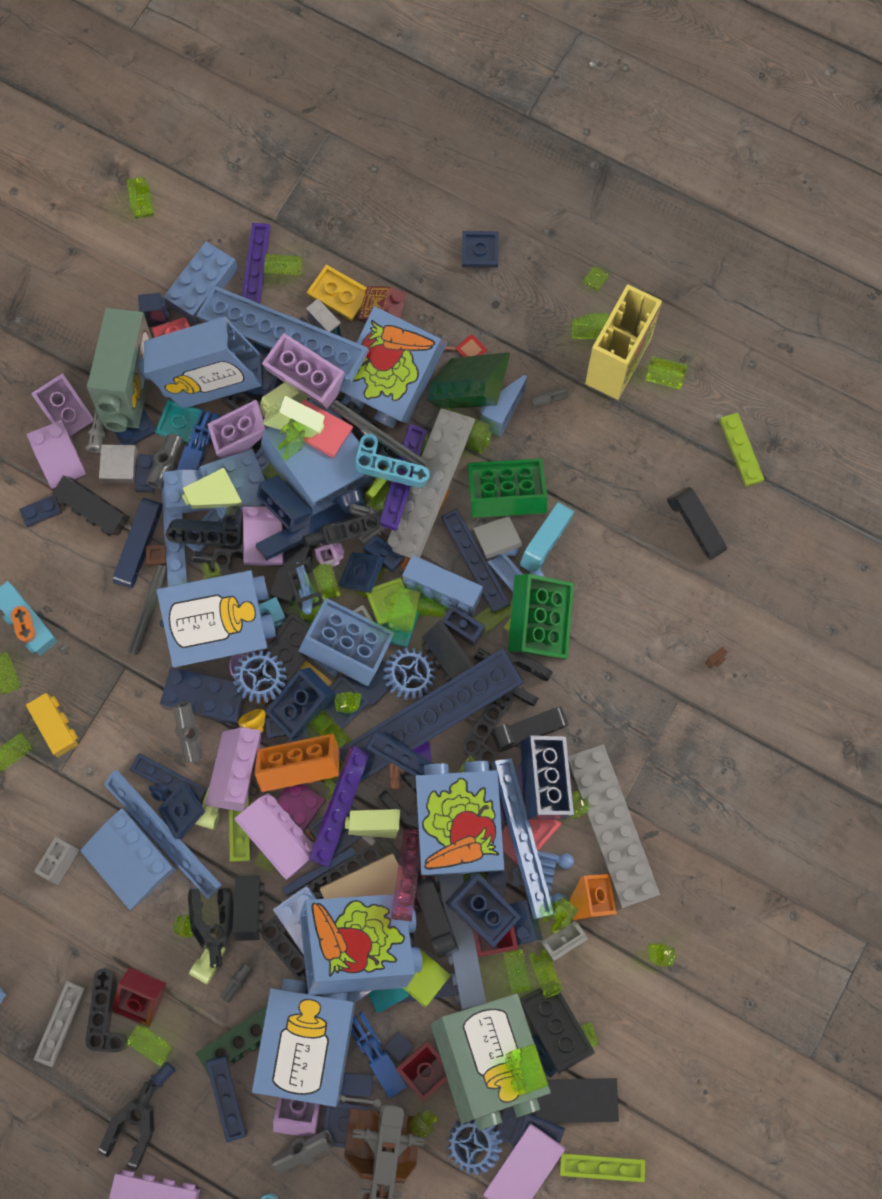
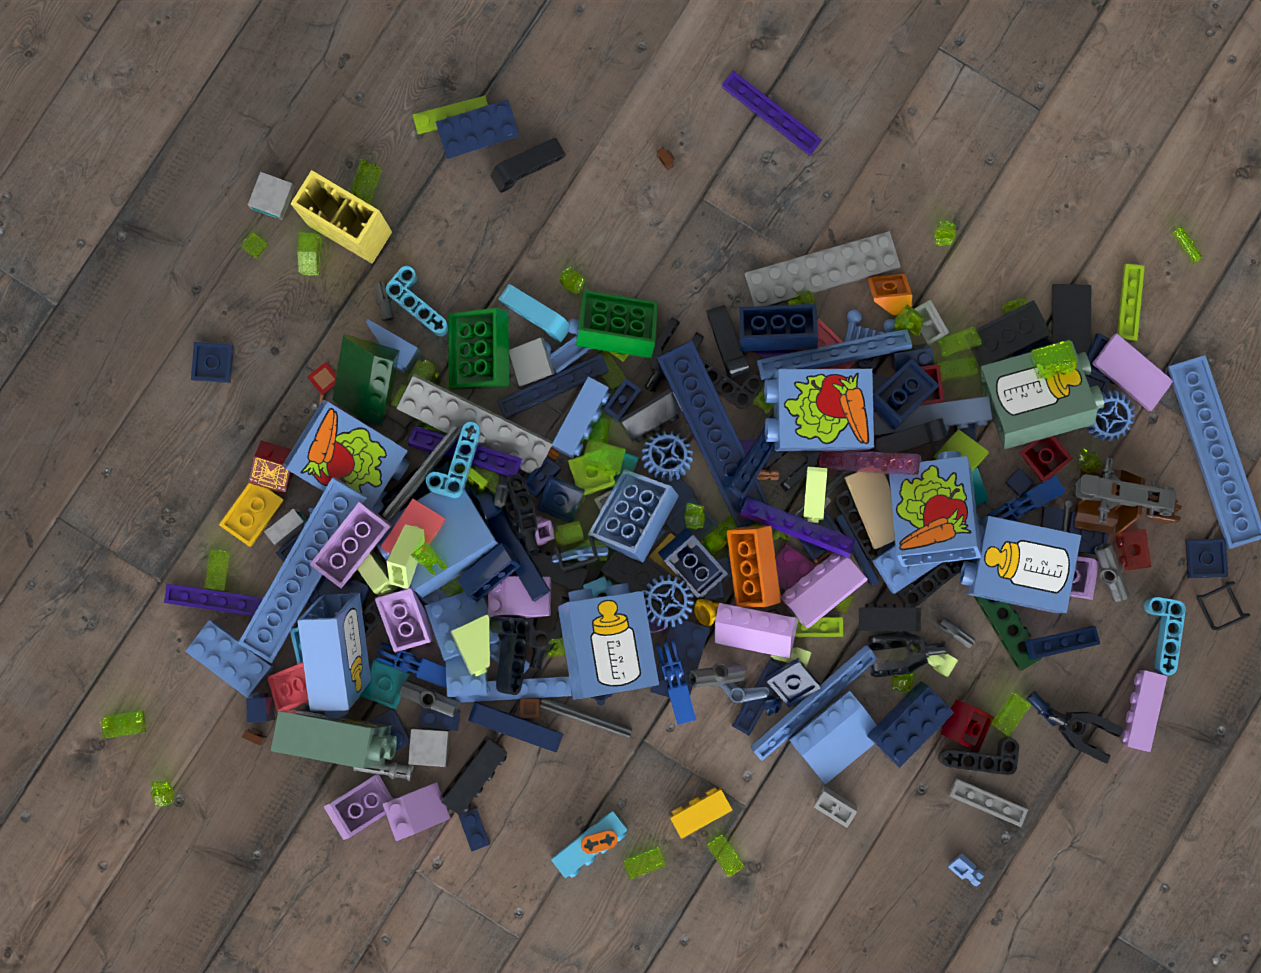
camera: 90 degrees left, 10 degrees up
(77, 234) = (162, 793): none -> clear neon green piece
(129, 304) = (255, 736): none -> reddish brown plate
(139, 934) = (910, 724): none -> dark blue brick
(169, 760) = (741, 695): none -> sand blue piece
(171, 690) = (678, 692): none -> blue arm
(317, 1184) = (1141, 558): none -> clear red brick
(547, 429) = (419, 305): none -> medium azure beam
(582, 572) = (572, 280): none -> clear neon green piece
(647, 282) = (271, 196): none -> flat silver piece
(728, 471) = (477, 128): none -> dark blue brick
(775, 764) = (771, 113): none -> dark purple plate

